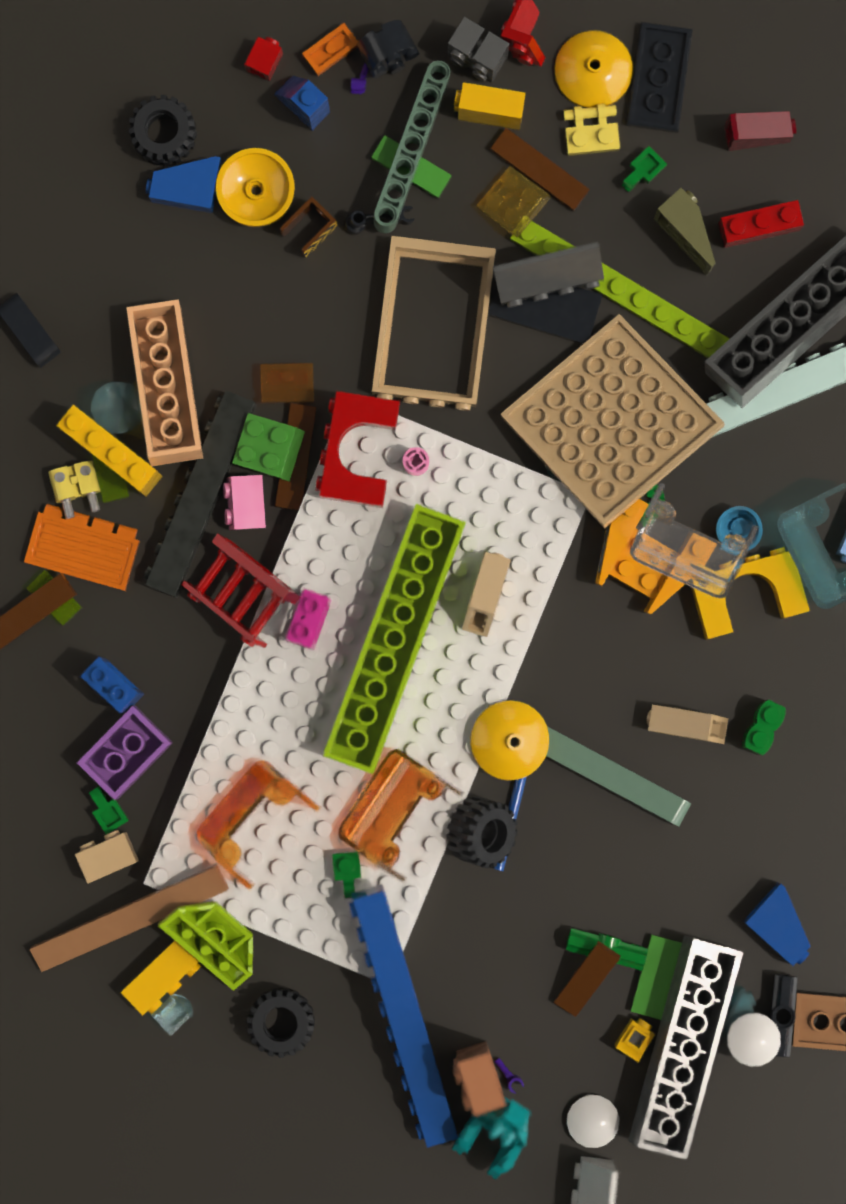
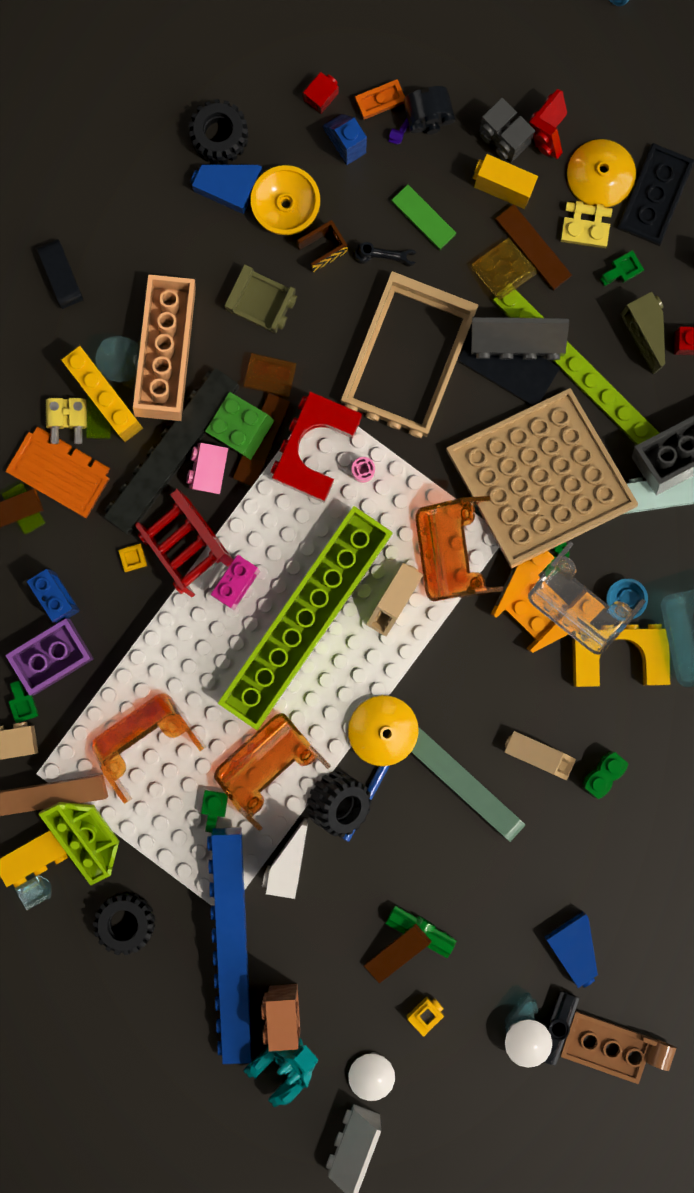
camera: 10 degrees right, 0 degrees up
(187, 621) = (133, 558): none -> yellow tile
(256, 303) = (260, 300): none -> olive panel
(415, 135) = (431, 189): sand green beam -> none
(442, 919) = (283, 875): none -> white slope
(508, 1075) = (310, 1021): dark purple hand -> none
(528, 527) = (445, 550): none -> clear orange windscreen
(656, 977) = (465, 971): bright green tile -> none
(685, 1047) = (467, 1034): dark grey brick -> none

